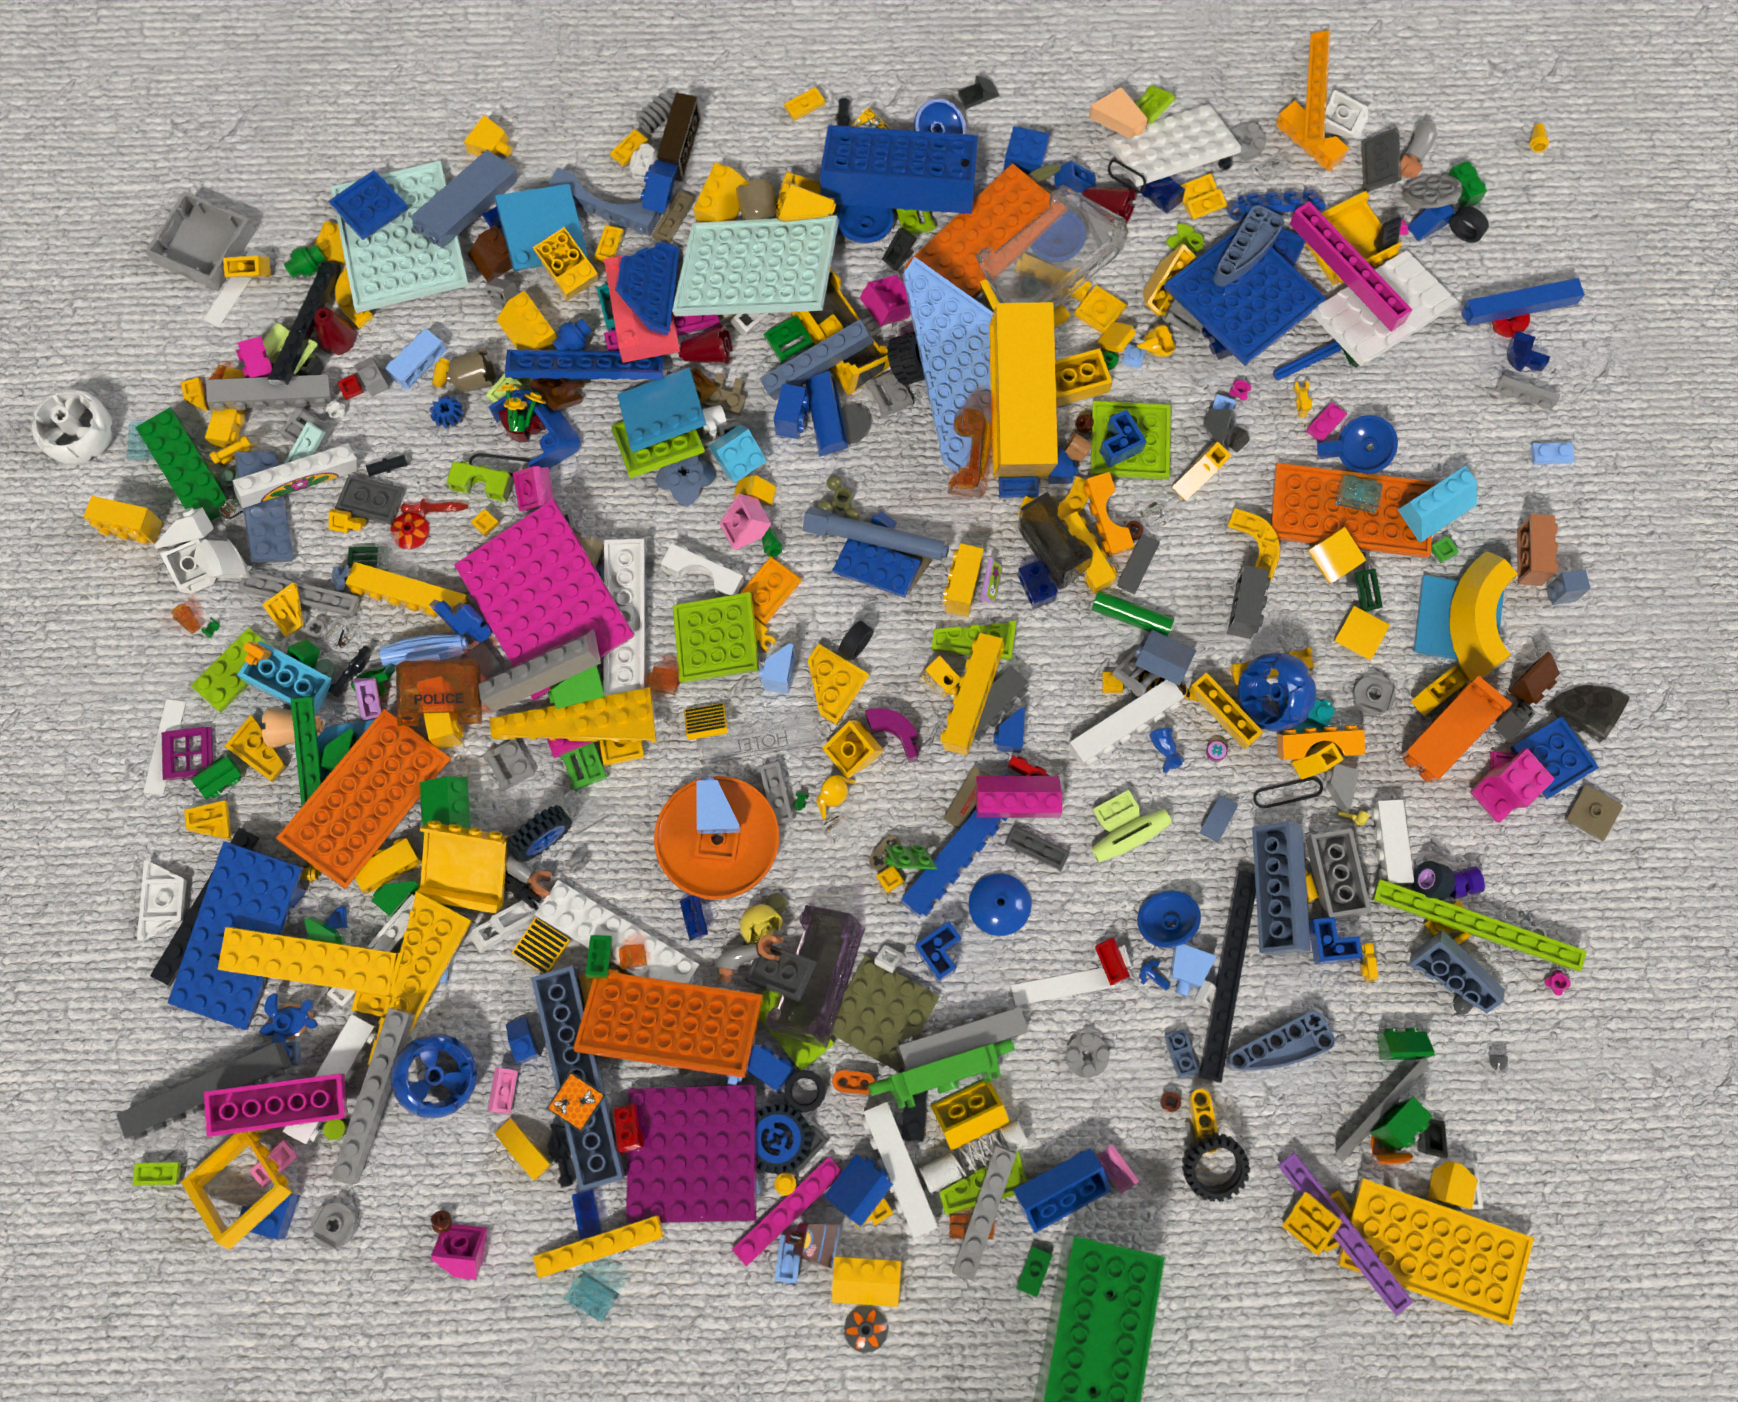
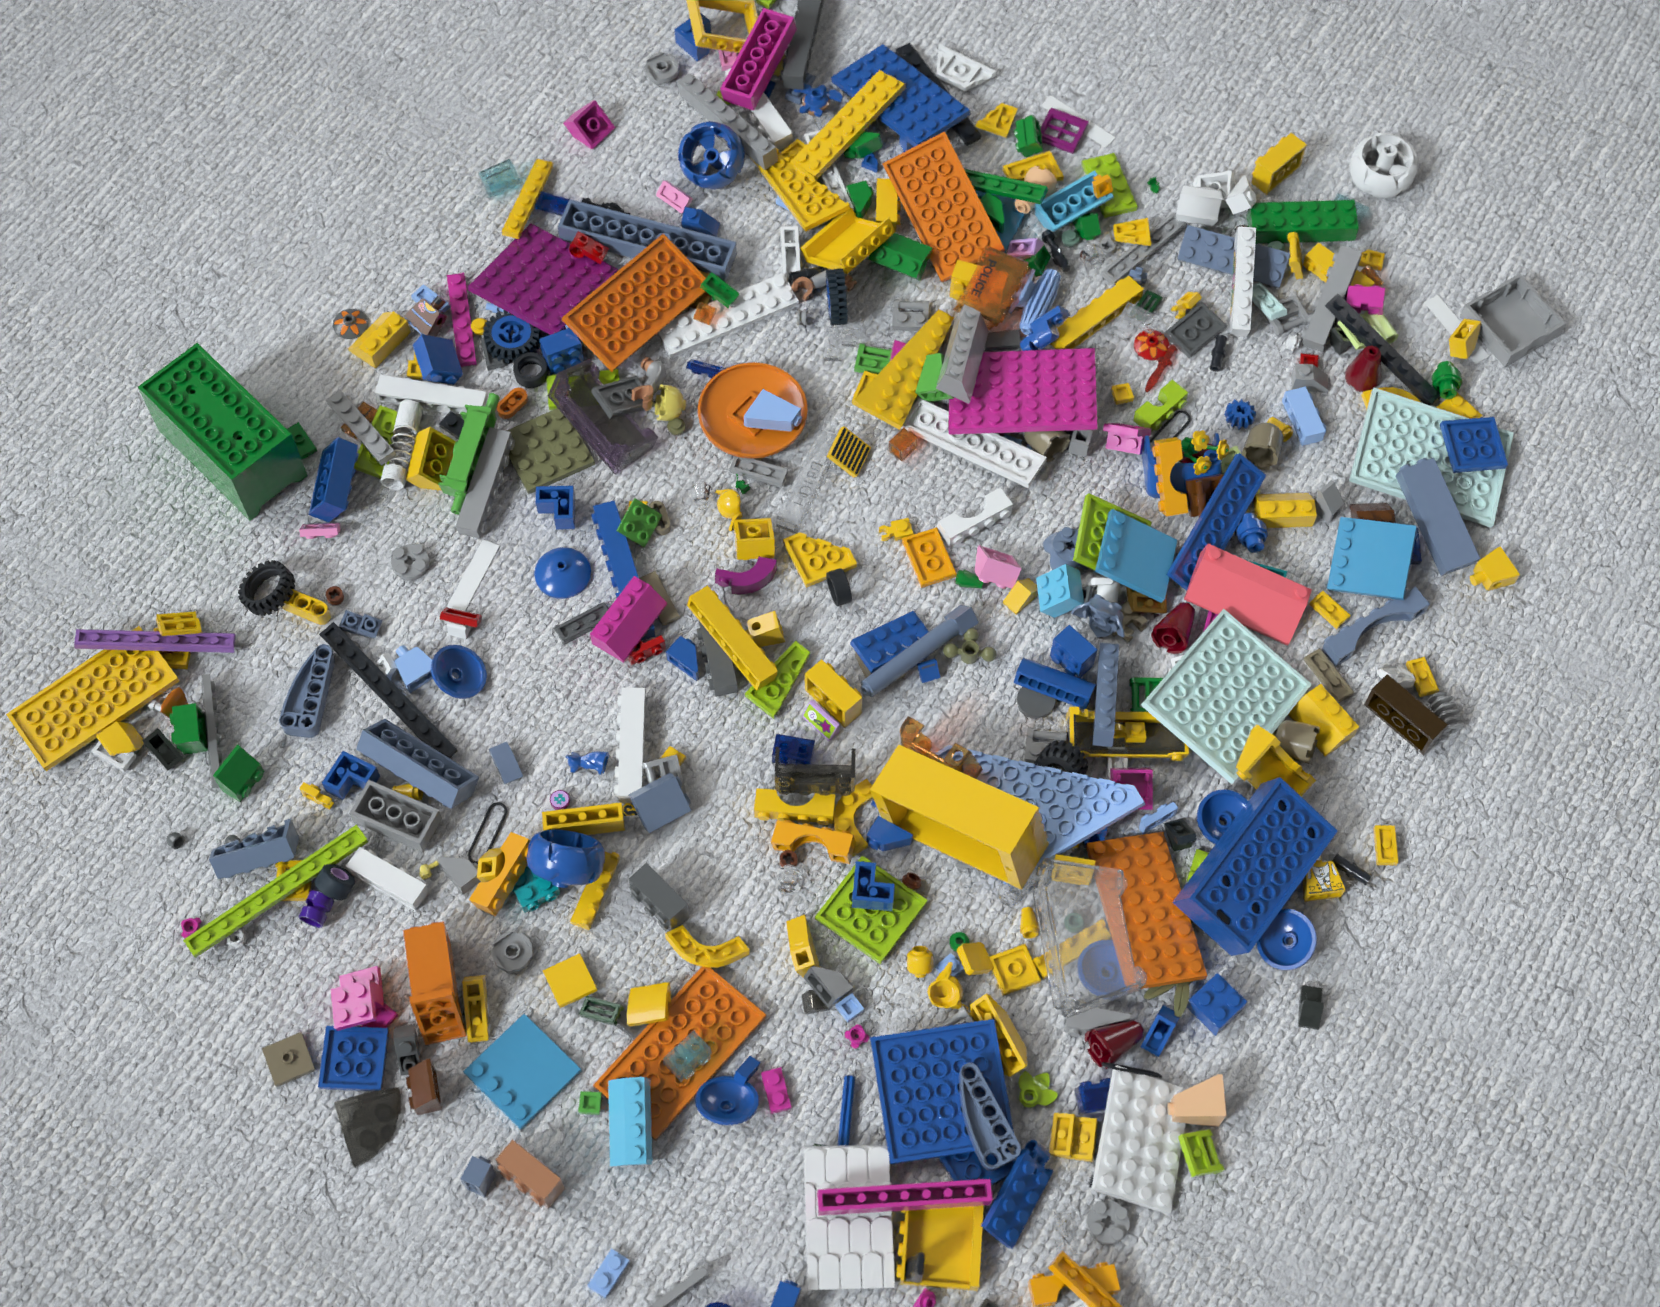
camera: 120 degrees right, 10 degrees down
(186, 618) = (1171, 172): clear orange cone -> none
(441, 1221) = (620, 125): copper bush -> none
(523, 1149) = (625, 189): yellow slope -> none
(541, 946) = (757, 267): tile -> none
(546, 426) = (1168, 453): none -> light orange arch
(566, 263) = (1324, 559): yellow slope -> none
(576, 1102) = (628, 224): tile -> none
(648, 284) = (1263, 606): blue plate -> none
(658, 186) = (1357, 665): blue brick -> none
(715, 638) = (912, 495): lime plate -> none
(741, 401) = (1103, 616): none -> sand blue brick
(778, 670) = (850, 519): light blue slope -> none
(888, 268) = (1163, 813): none -> light blue plate
(888, 958) = (579, 473): white plate -> none
(1077, 447) = (891, 854): medium nougat plate -> none
(1081, 377) = (956, 898): yellow brick -> none
(1125, 826) = (551, 691): yellowish green plate -> none
(1132, 614) = (717, 811): green brick -> none
(1138, 564) = (757, 844): dark grey tile -> none
(1146, 969) = (436, 640): blue piece -> none
(1149, 375) = (920, 961): none -> yellow head
(1302, 401) = (807, 1079): yellow plate -> none
(1474, 615) = (515, 1078): yellow brick -> none

